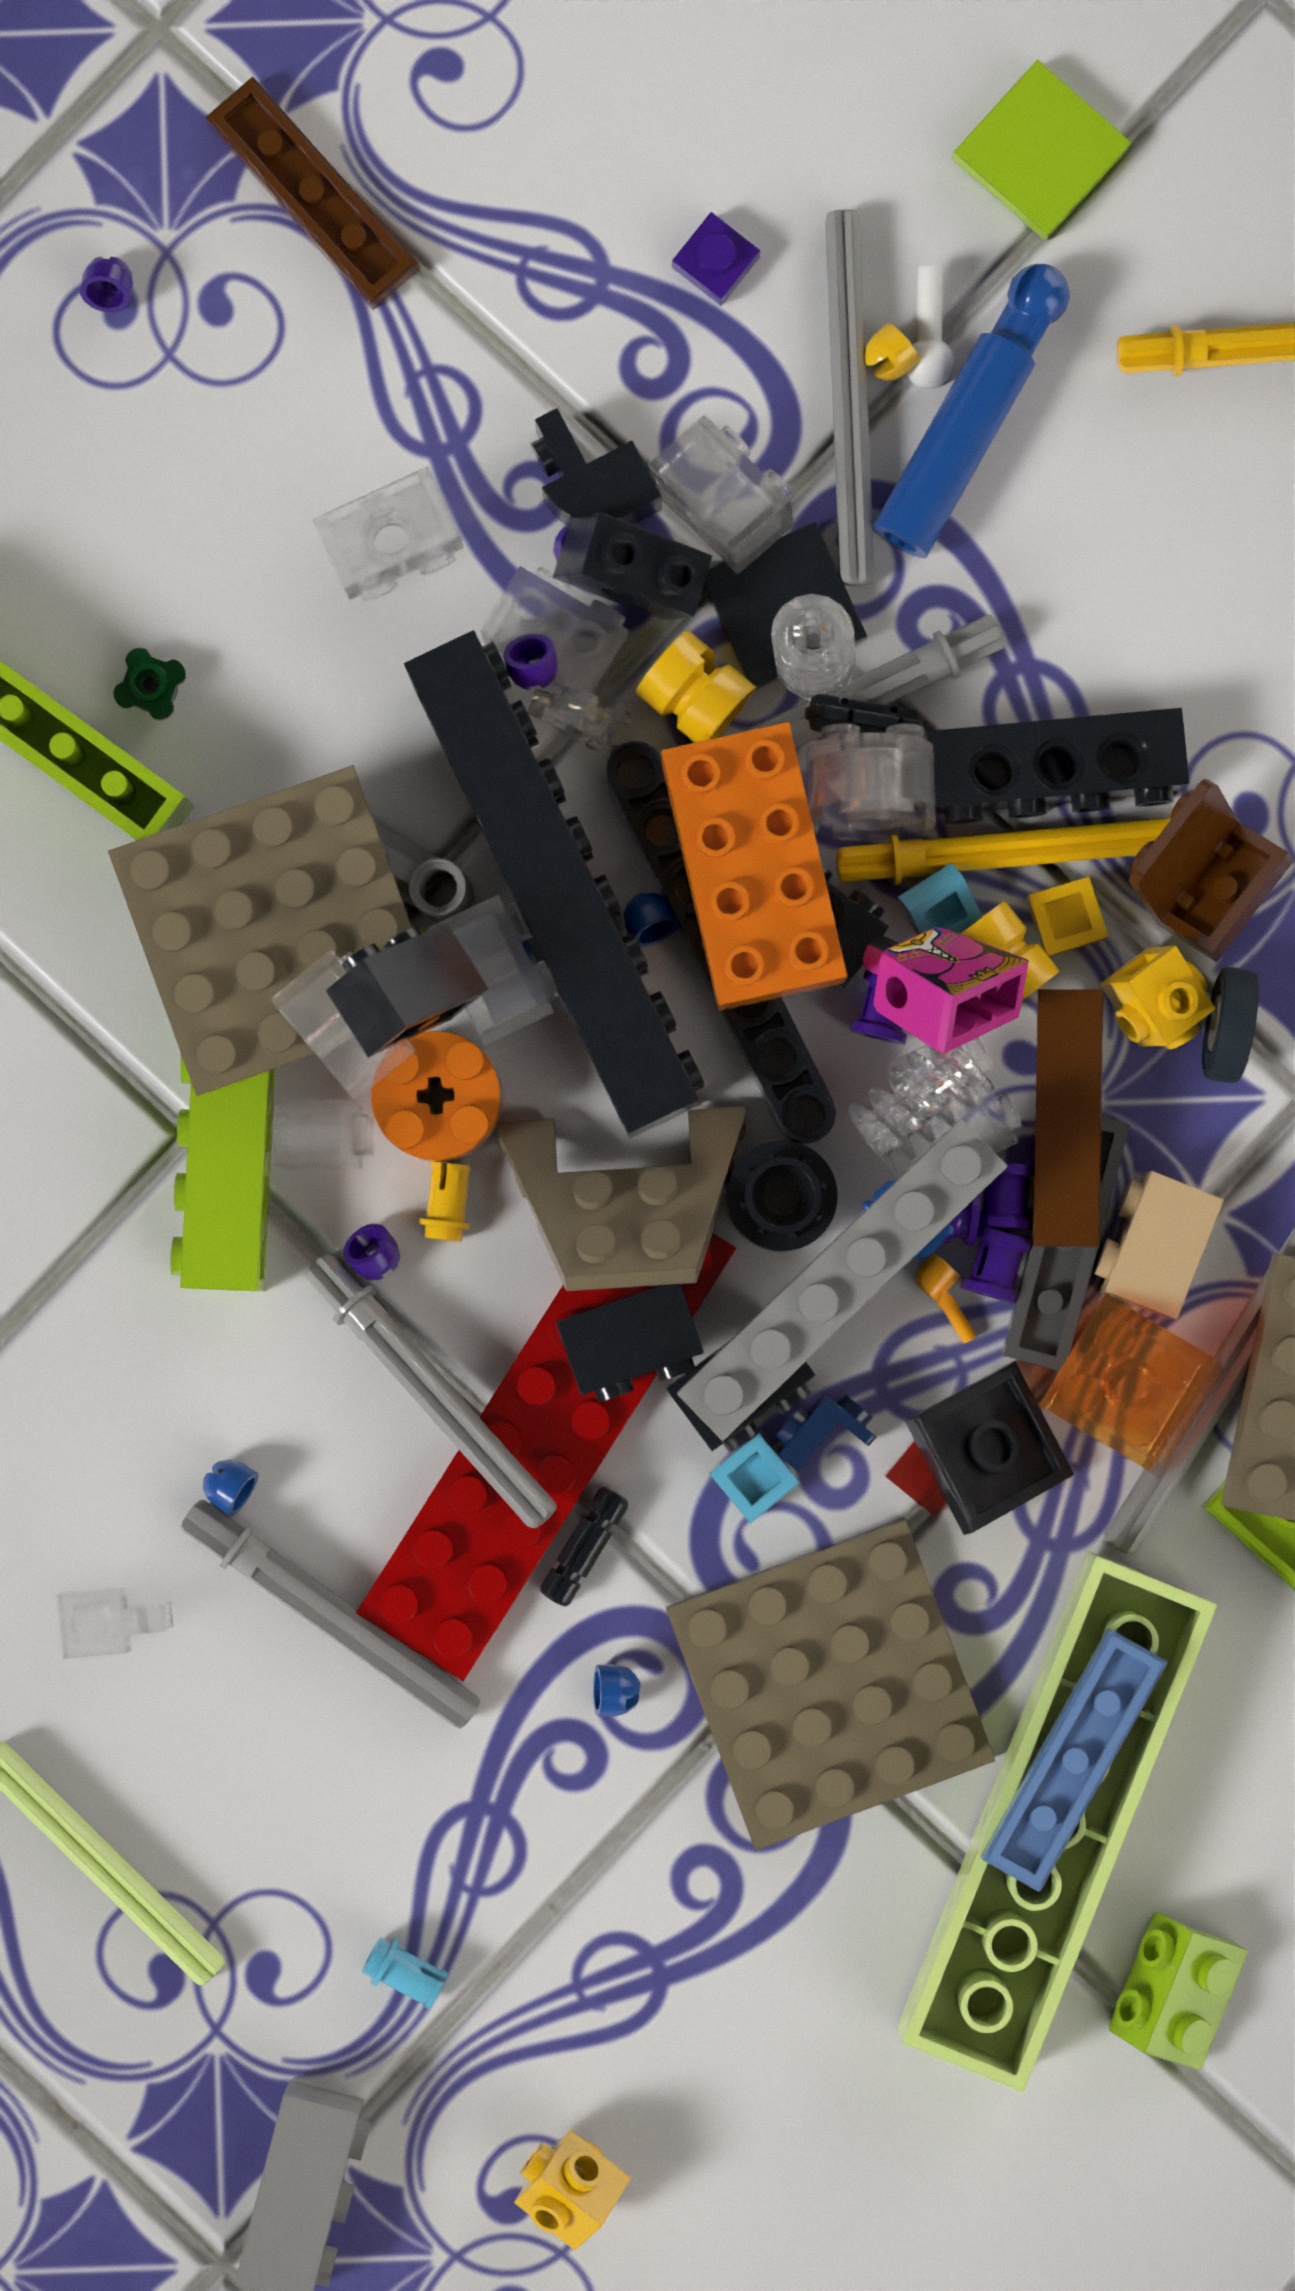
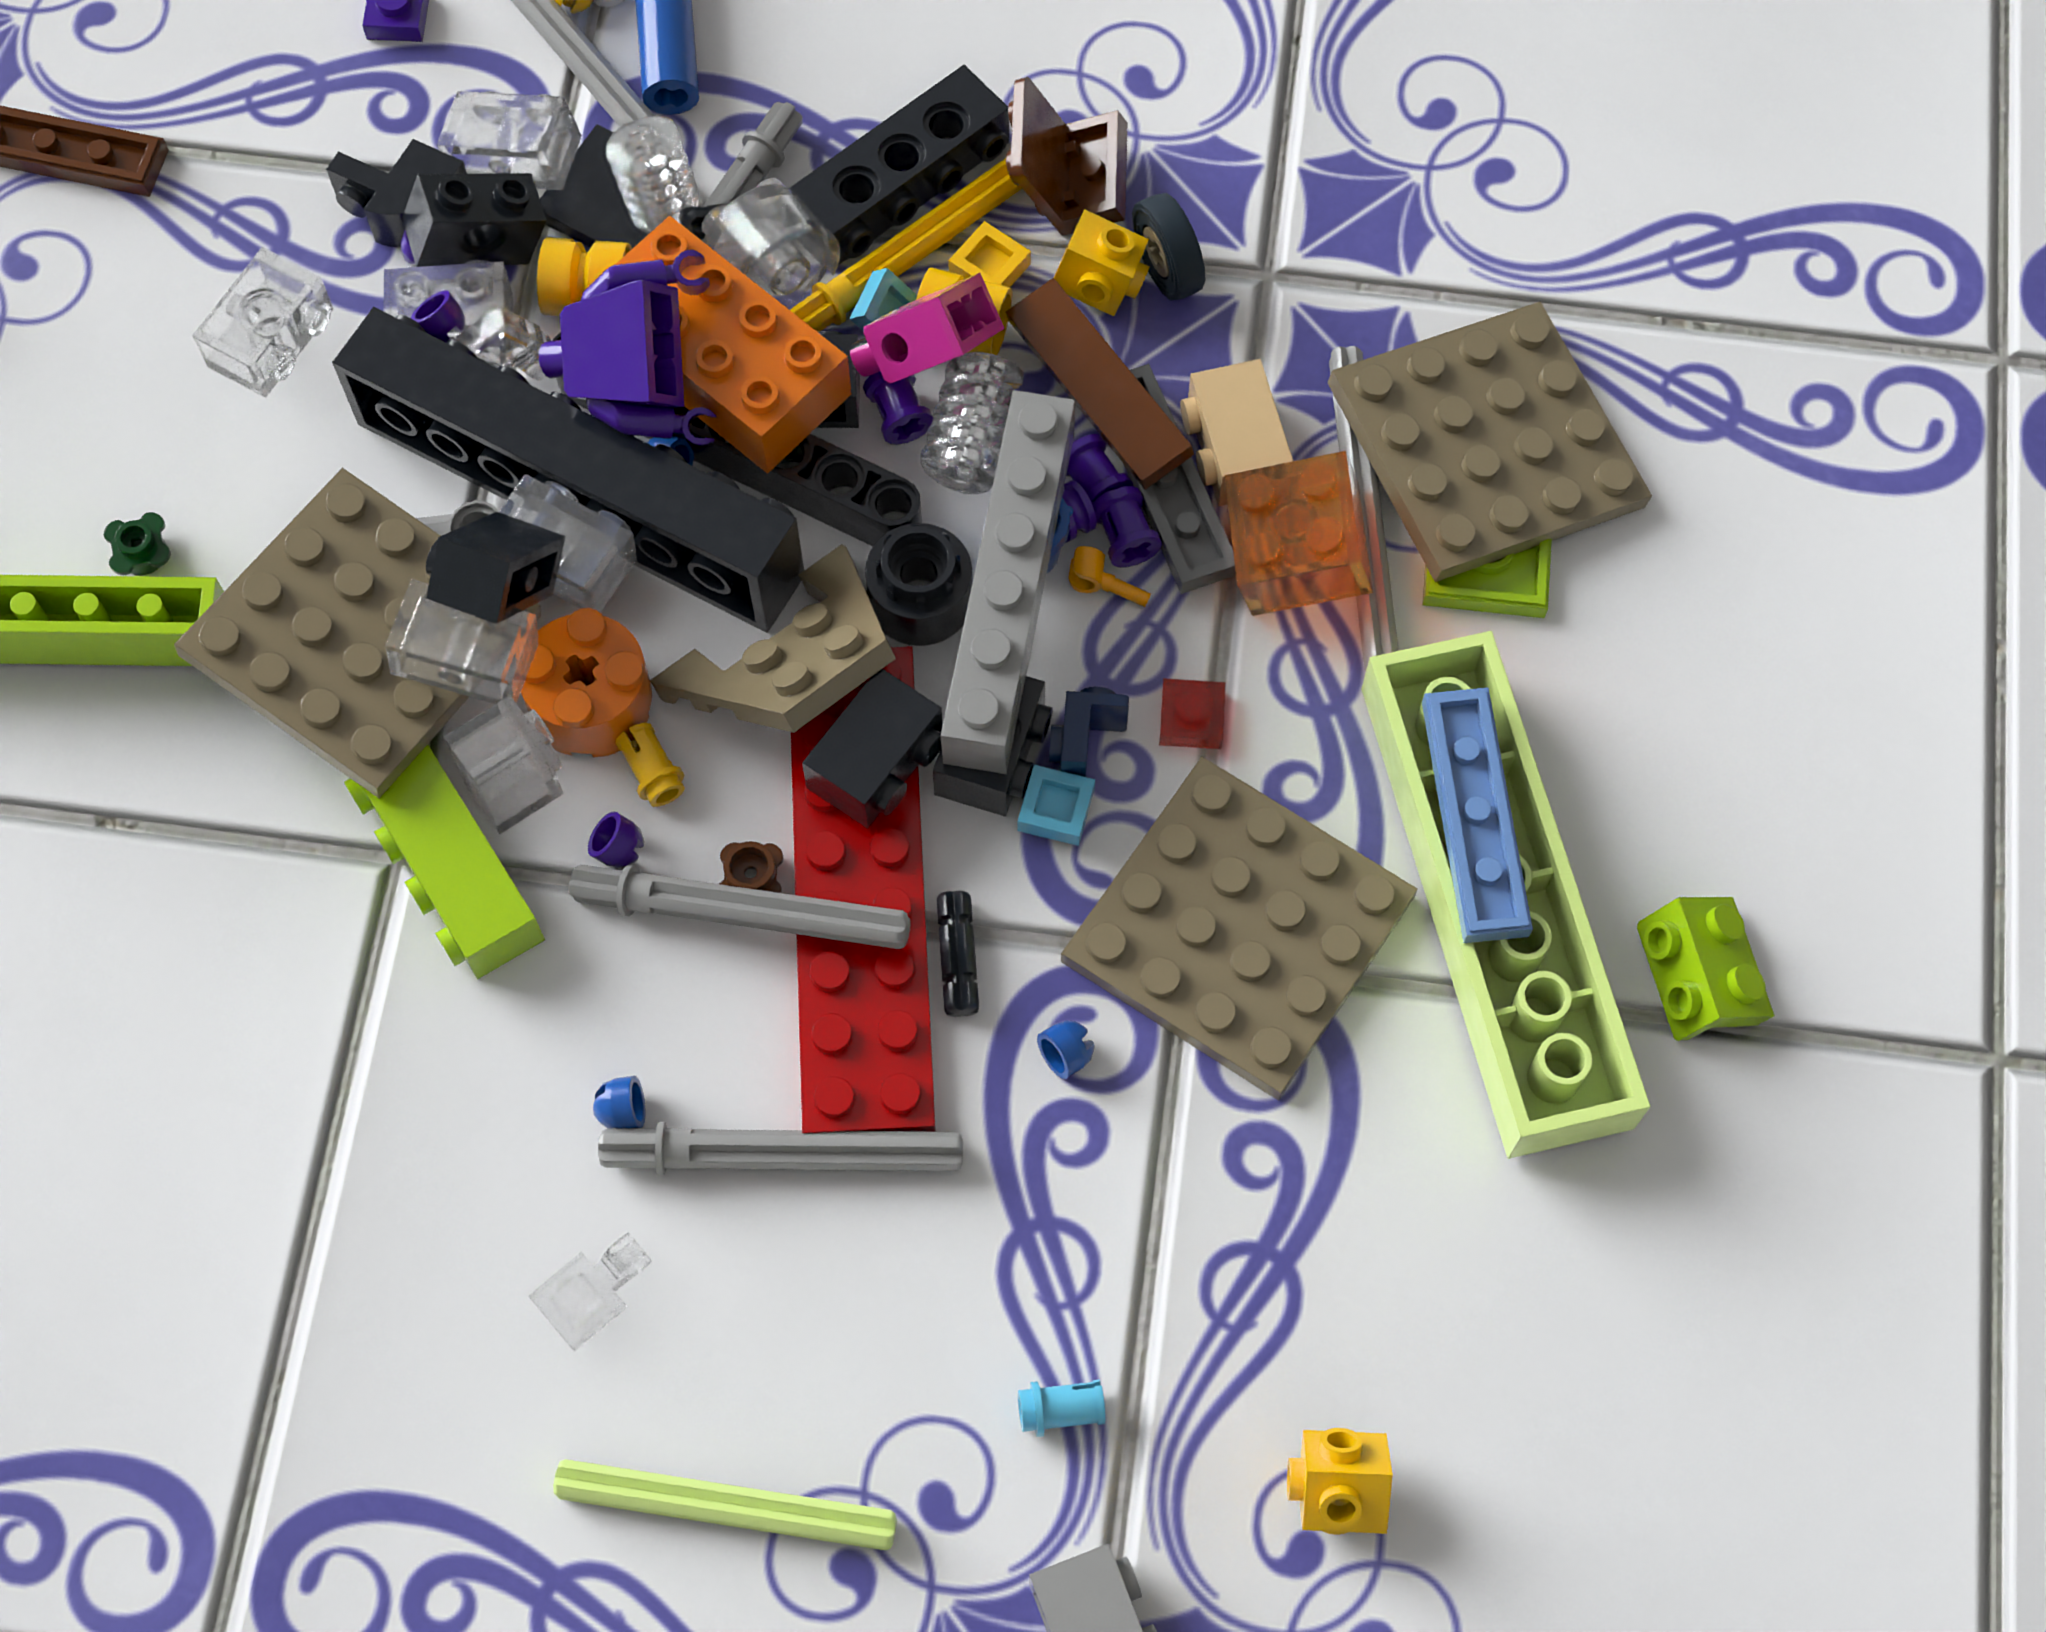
camera: 40 degrees left, 20 degrees down
(484, 1355) = (746, 855): none -> reddish brown plate
(654, 847) = (626, 348): none -> dark purple torso
(989, 1448) = (1224, 658): black tile -> none

